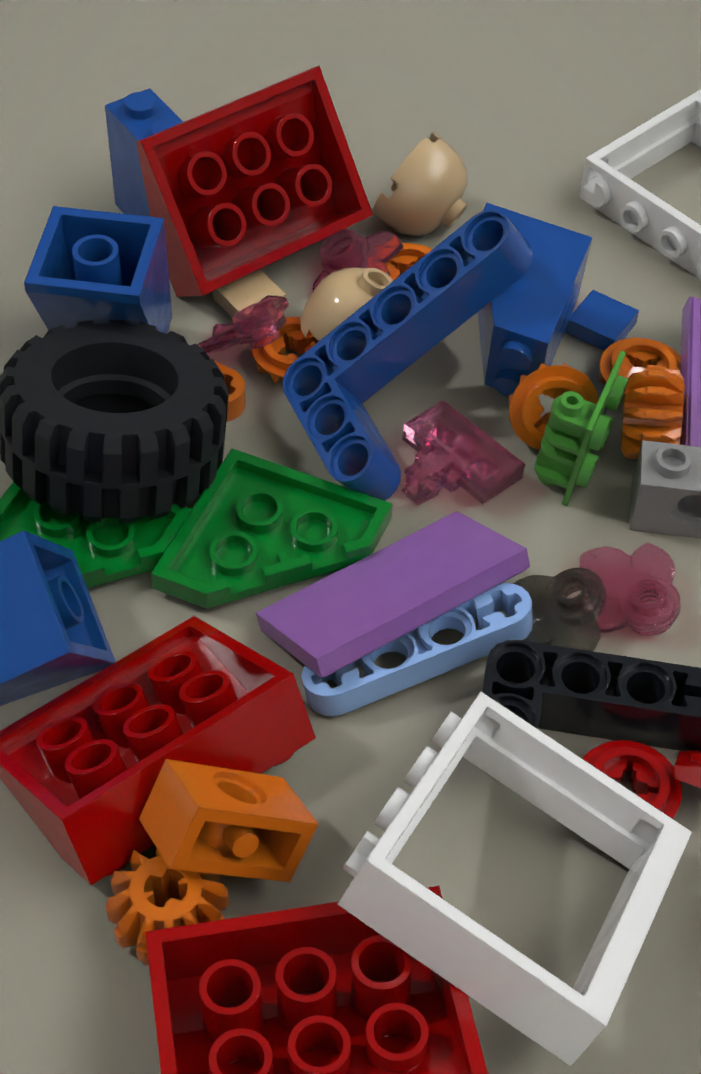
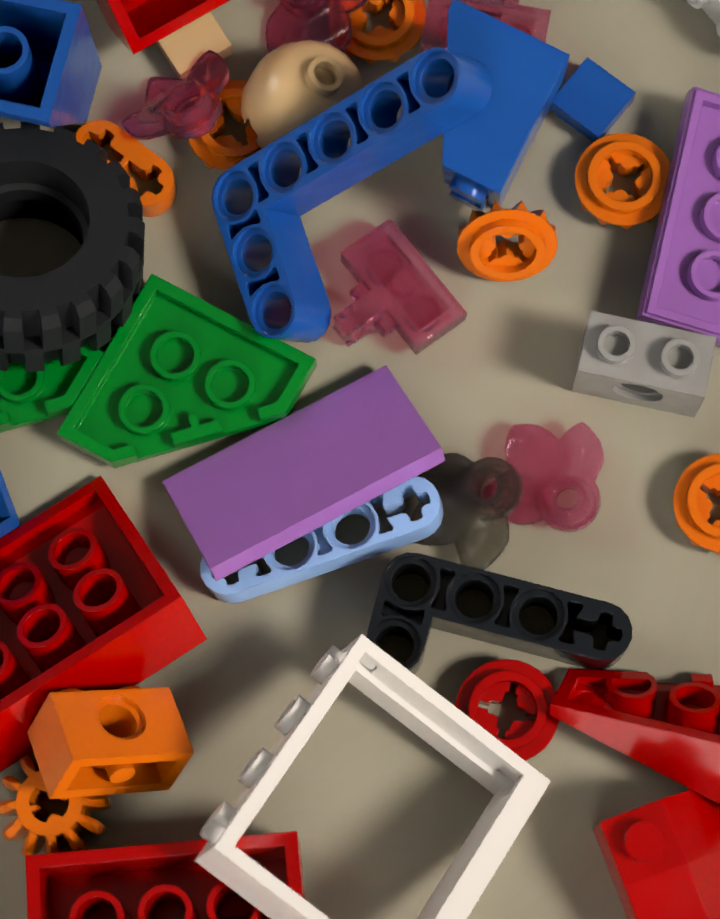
camera: 10 degrees right, 25 degrees up
(574, 431) = (519, 300): bright green hinge -> none
(651, 408) = (614, 261): orange gear -> none

